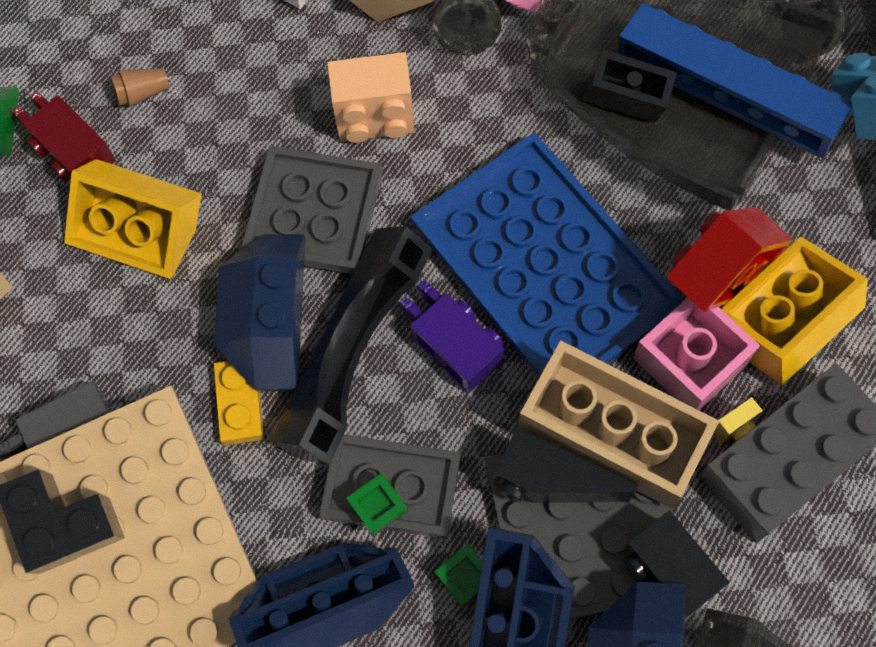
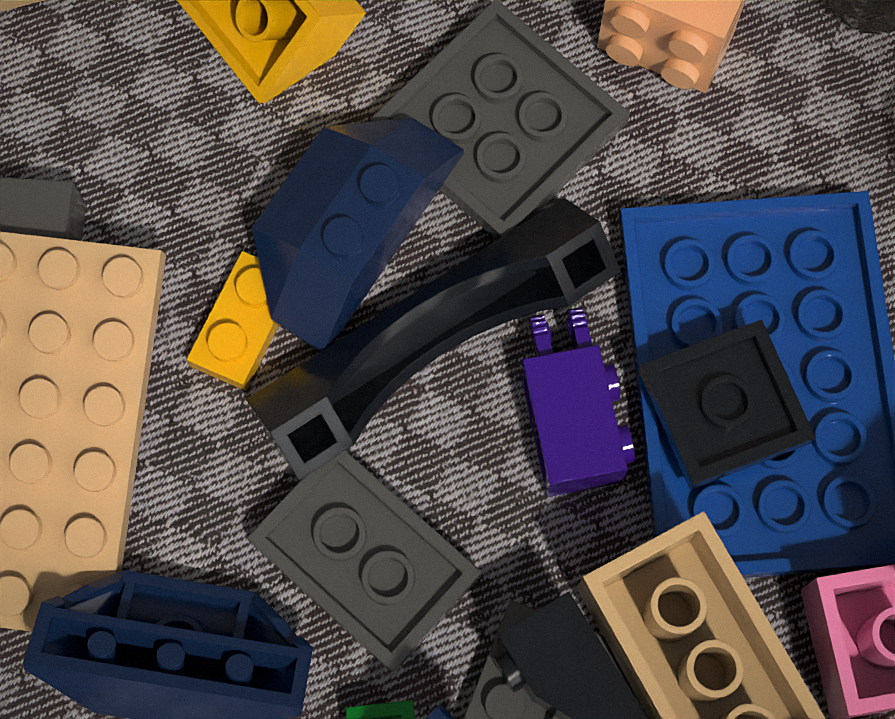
camera: 30 degrees right, 5 degrees up
(377, 504) = (325, 573): green plate -> none
(533, 283) = (726, 404): none -> black plate

